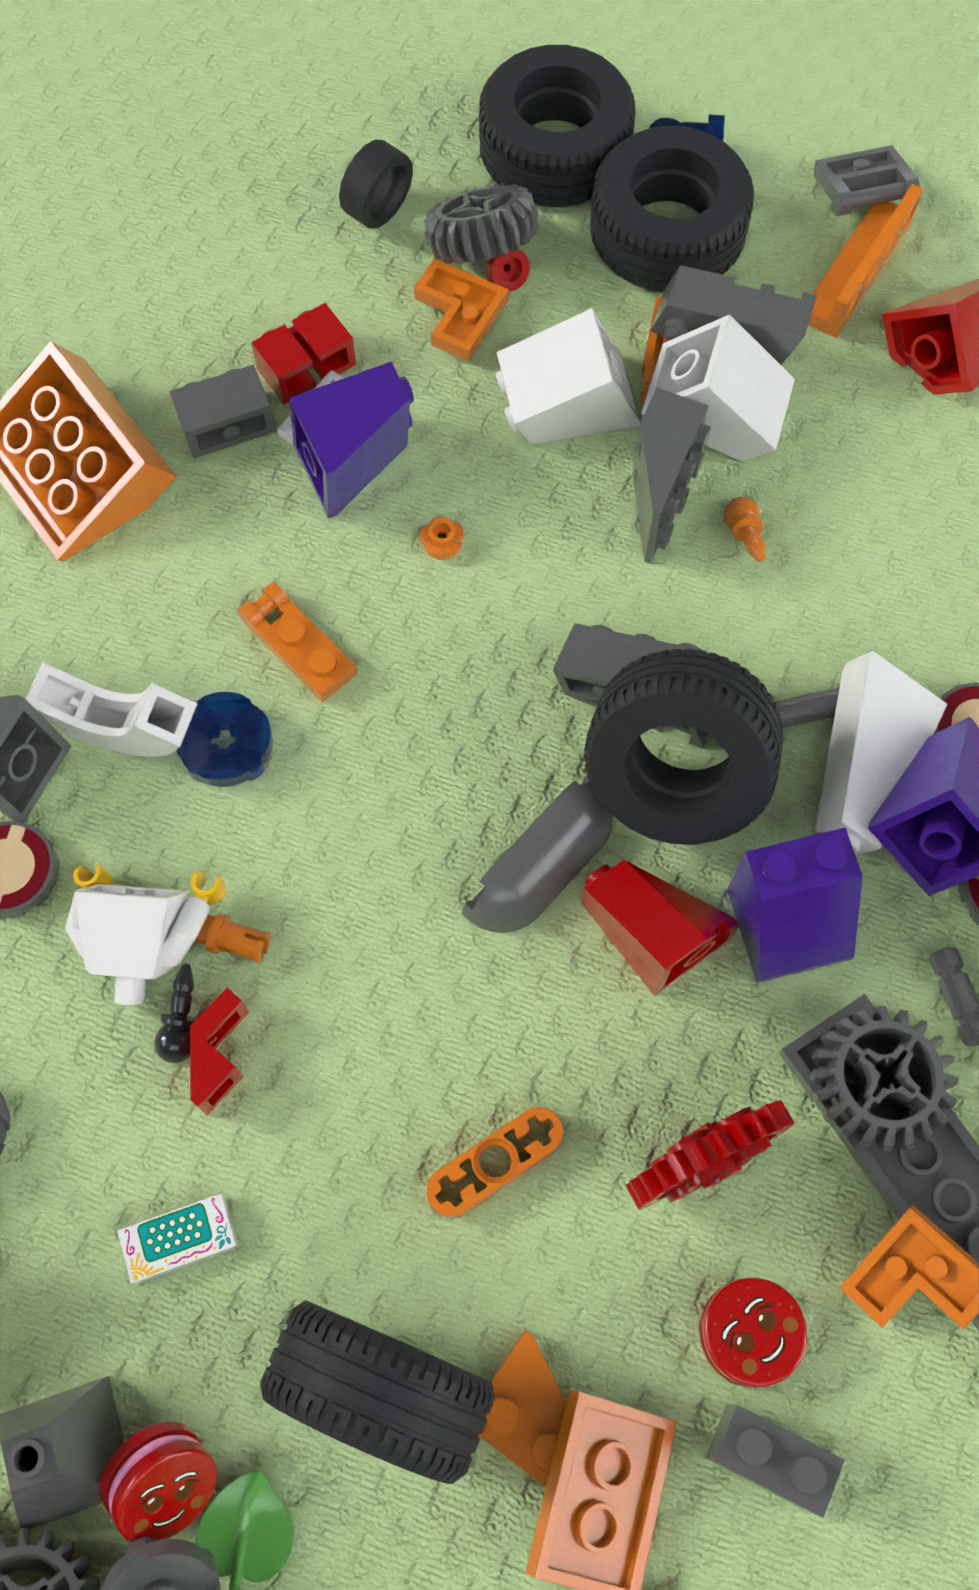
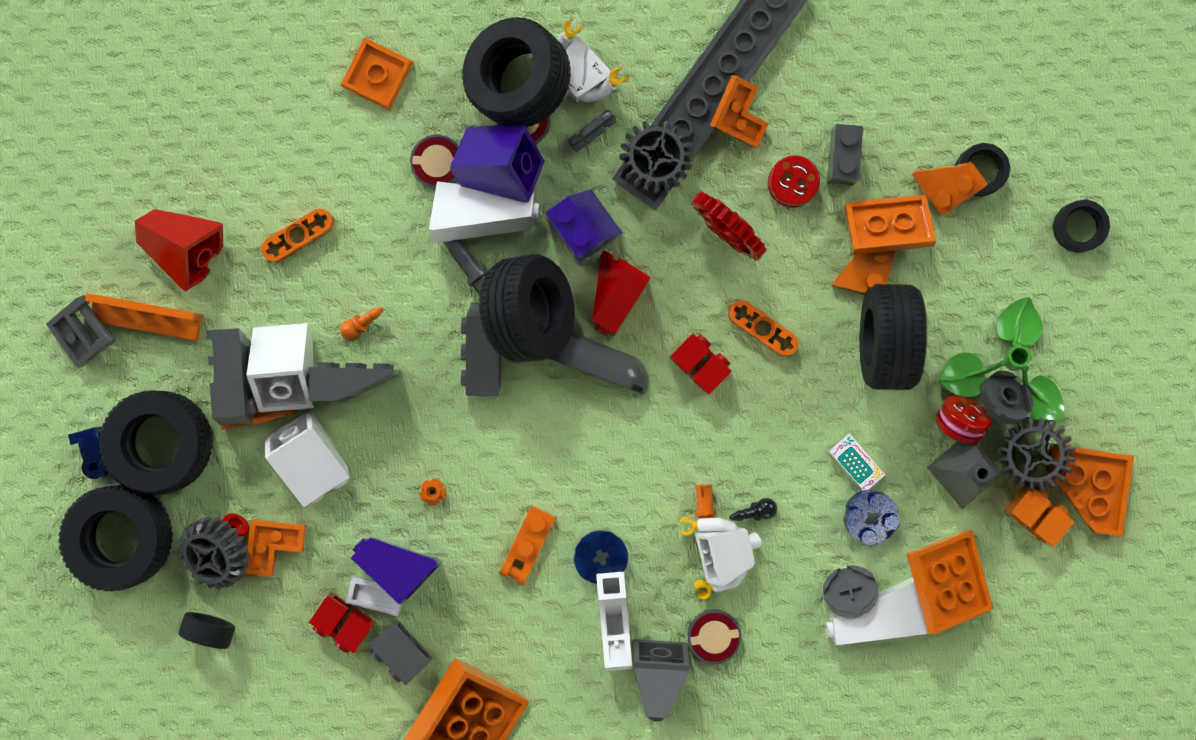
camera: 110 degrees left, 20 degrees up
(38, 1218) = (886, 519): none -> clear blue plate
(210, 1071) = (774, 483): red slope -> none
(501, 1014) = (691, 353): none -> red piece
(914, 510) = (276, 239): none -> orange beam

